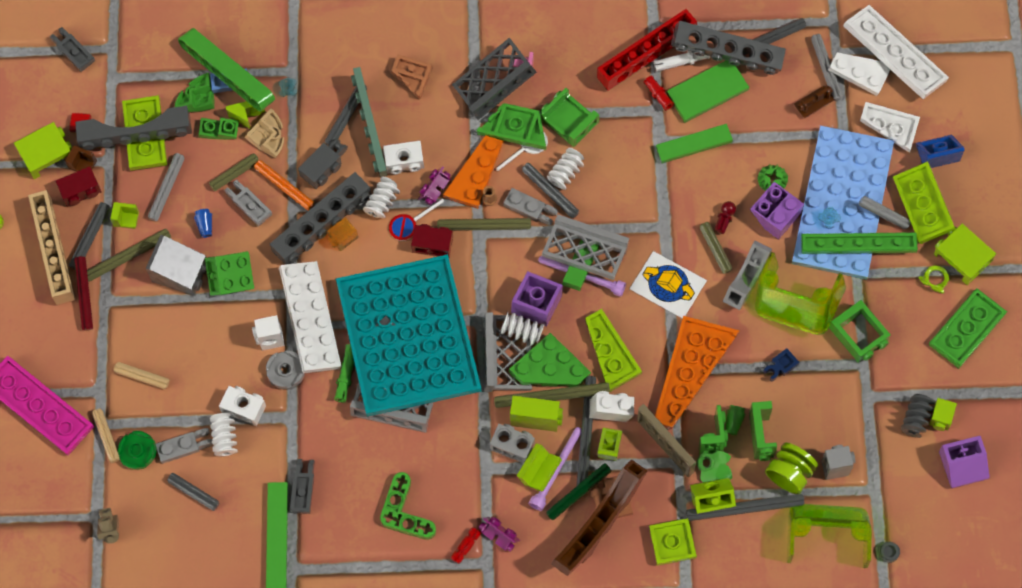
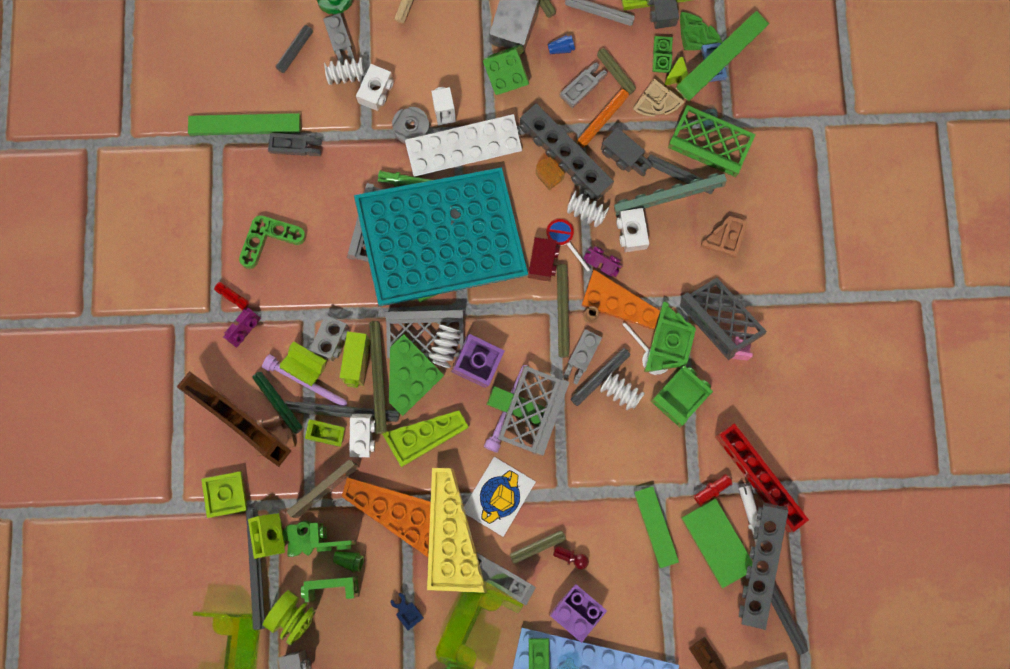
camera: 85 degrees right, 10 degrees up
(329, 87) = (701, 153): none -> bright green fence
(722, 318) = (452, 553): none -> light yellow wing
(764, 180) = (625, 605): bright green gear -> none

